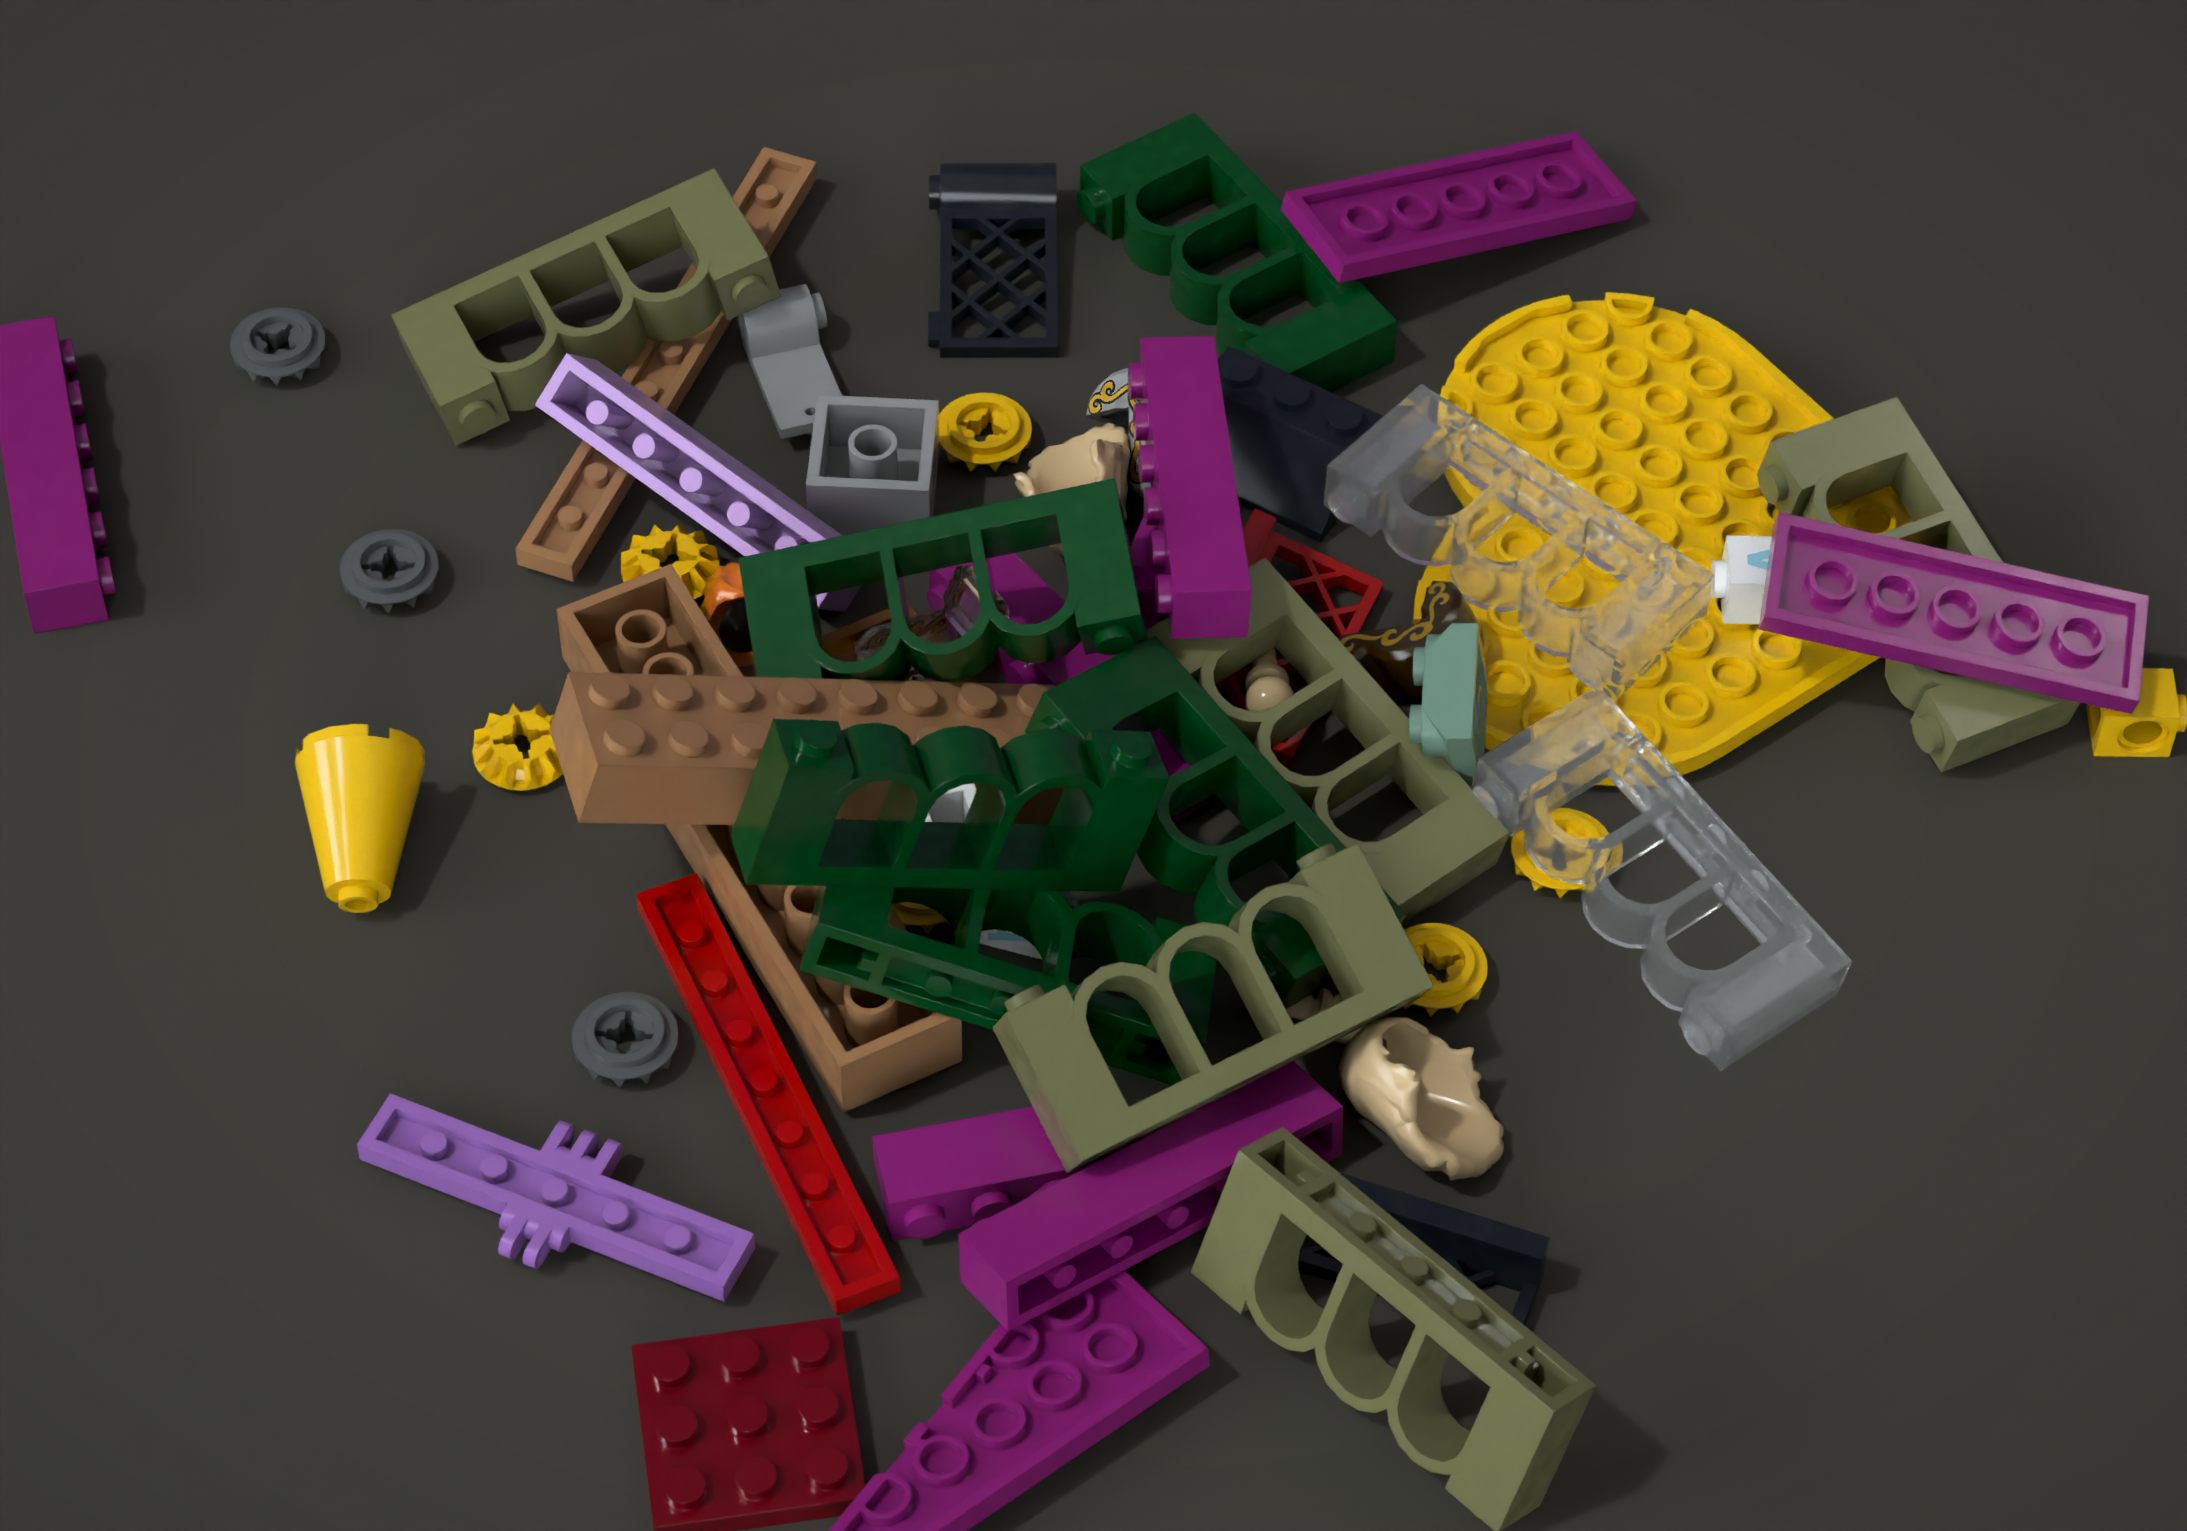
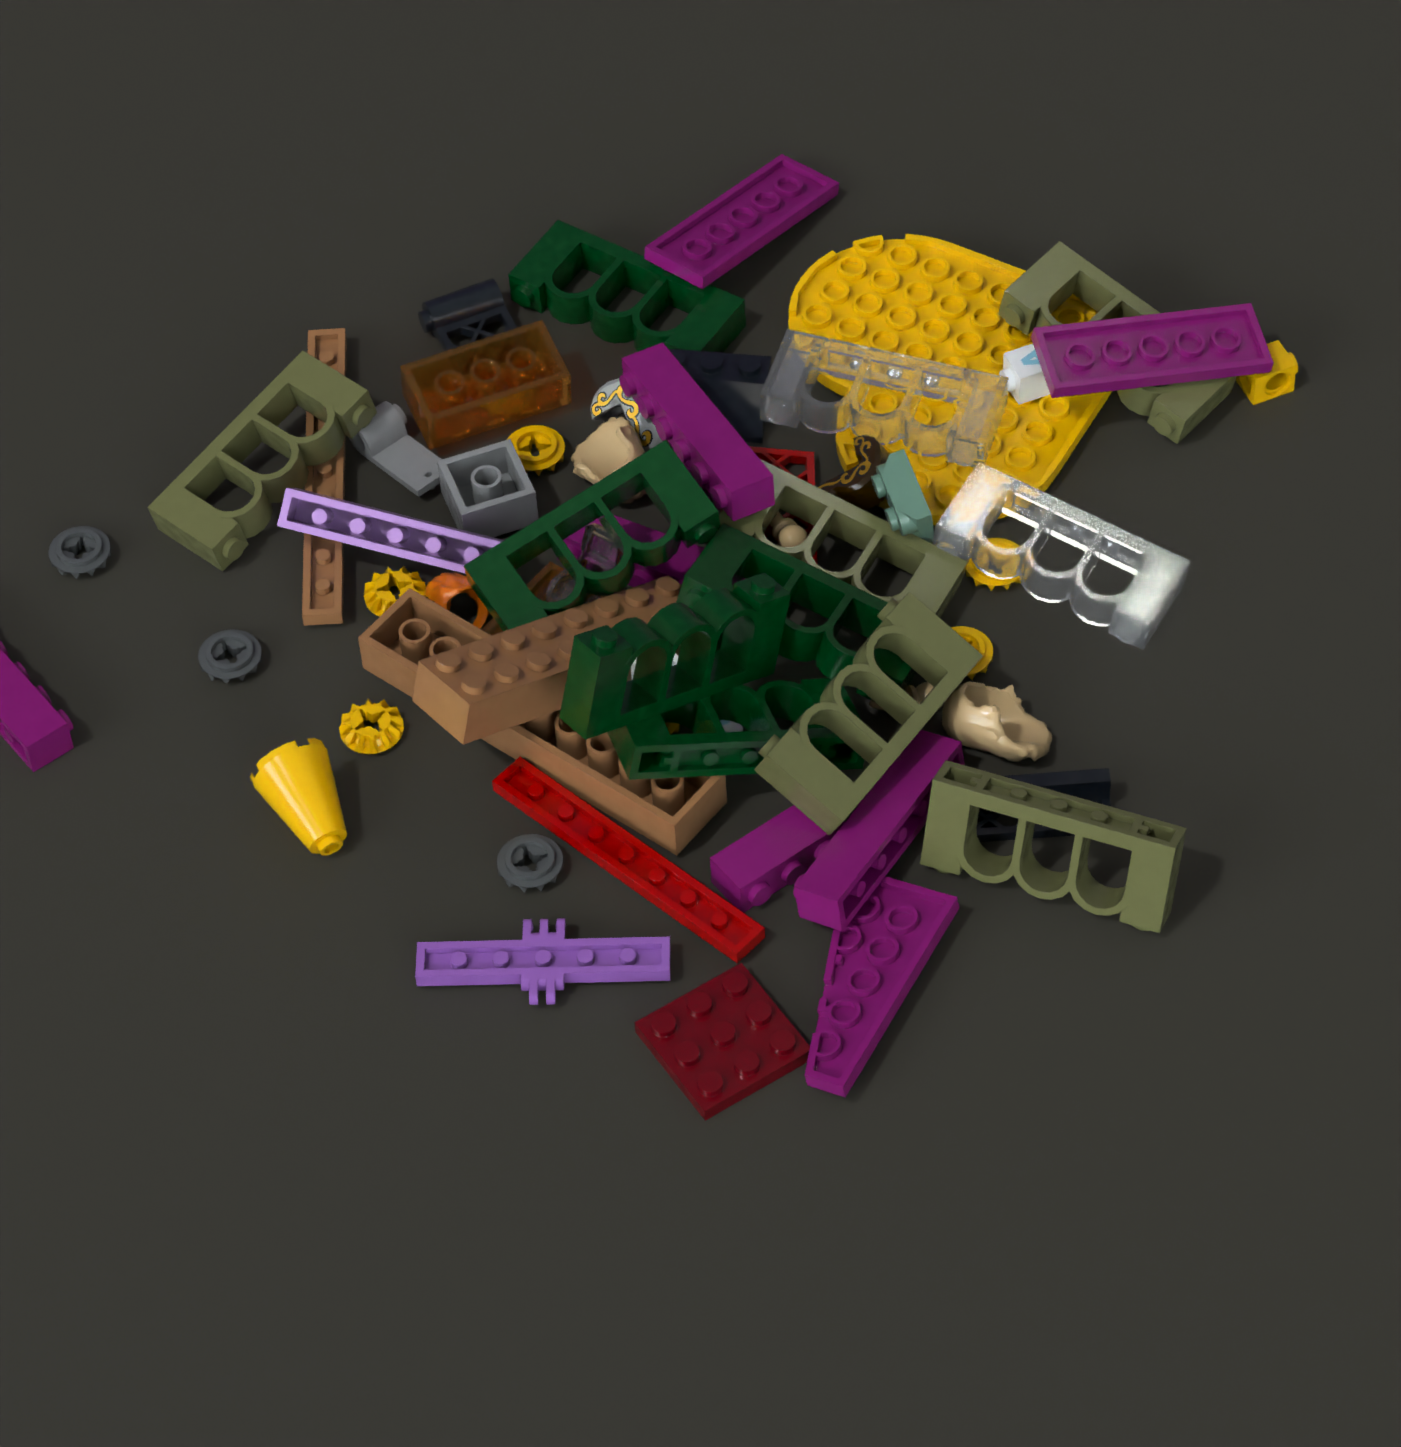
camera: 20 degrees left, 0 degrees up
(954, 310) = (486, 384): none -> clear orange brick

